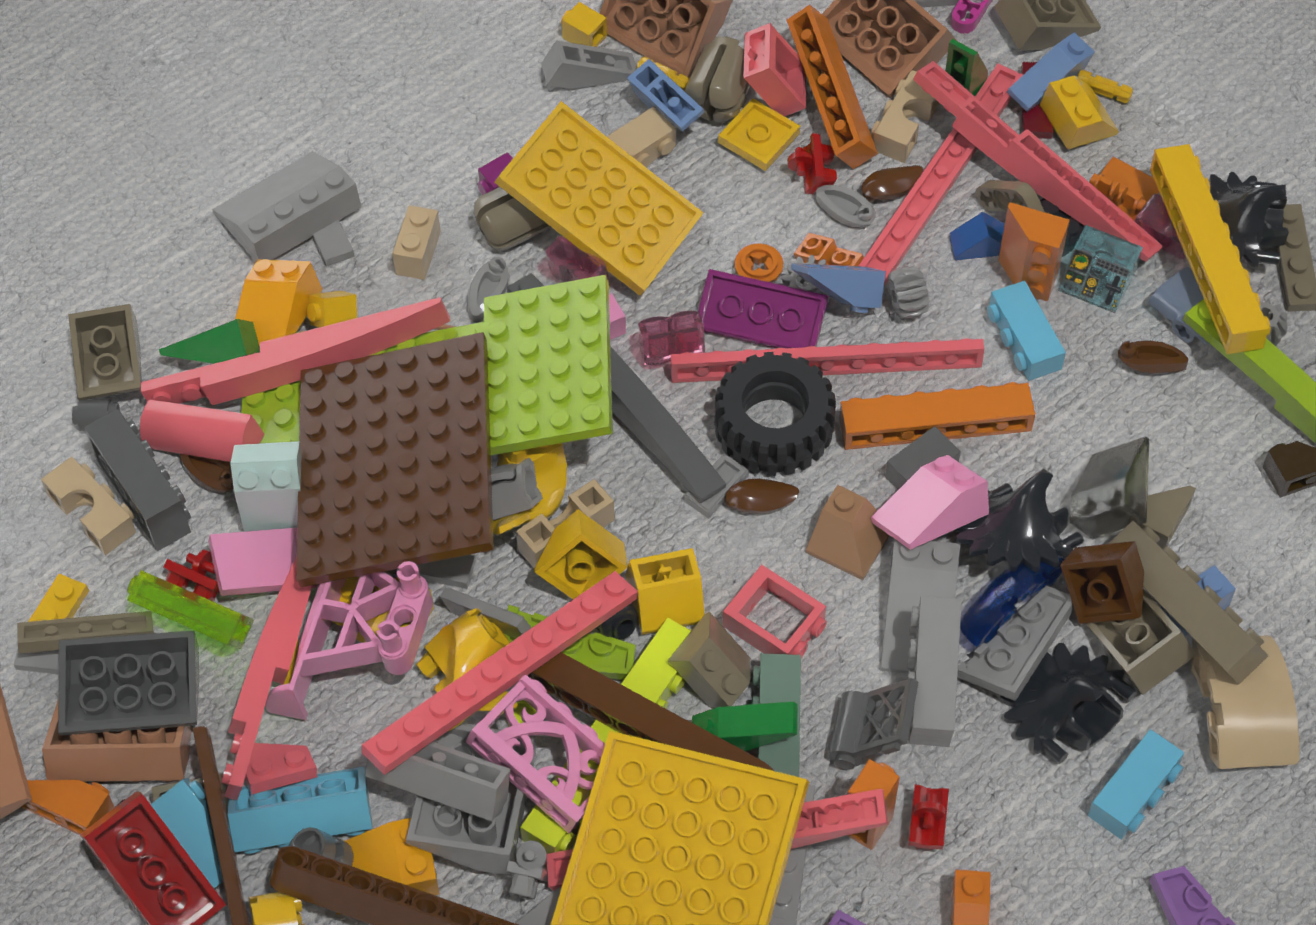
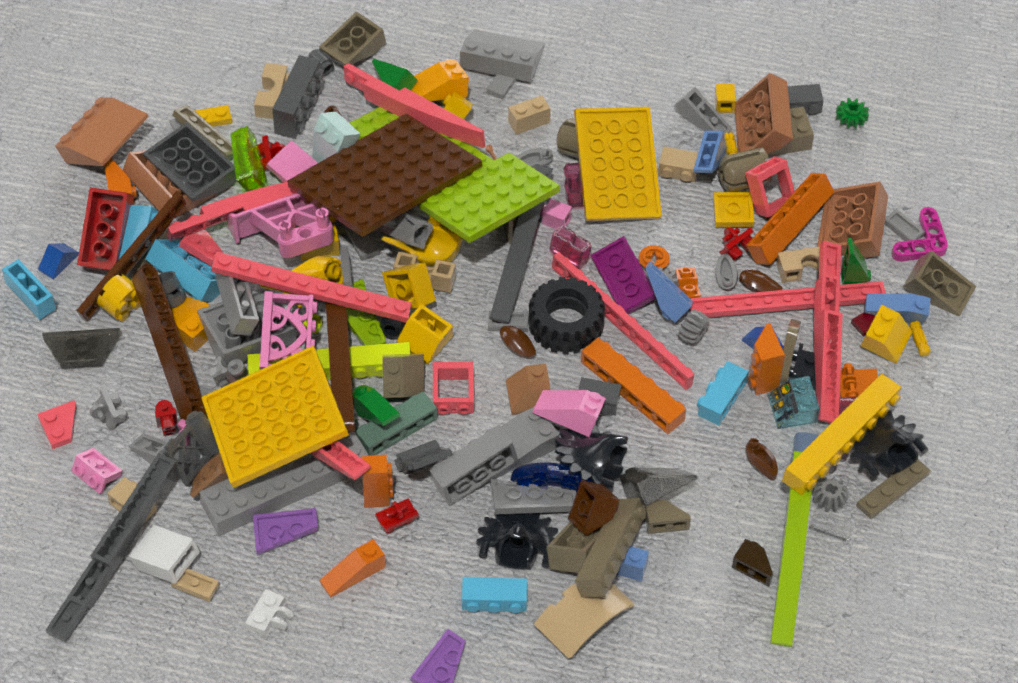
camera: 50 degrees right, 5 degrees down
(196, 429) = (342, 99): coral brick -> none

